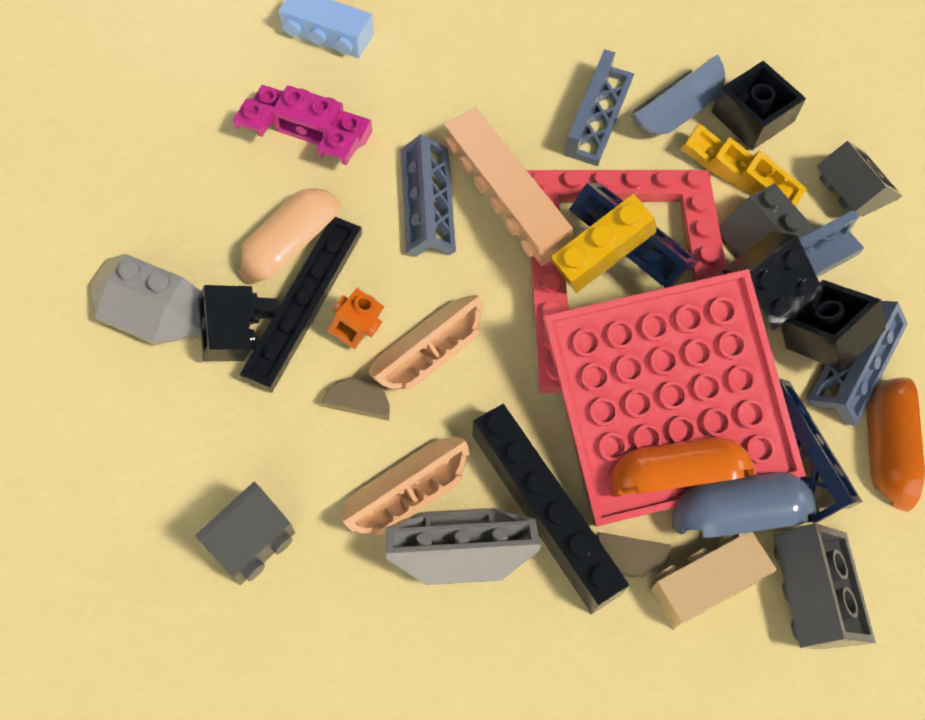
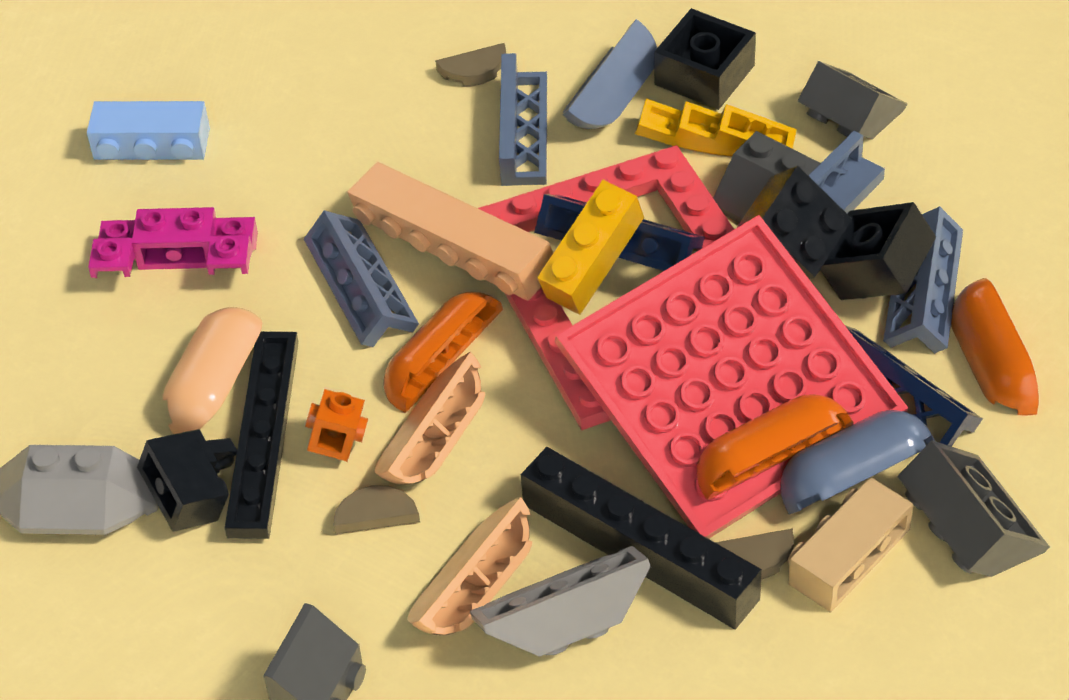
camera: 15 degrees left, 15 degrees down
(461, 275) = (437, 346): none -> orange brick
(581, 51) = (473, 66): none -> dark tan tile

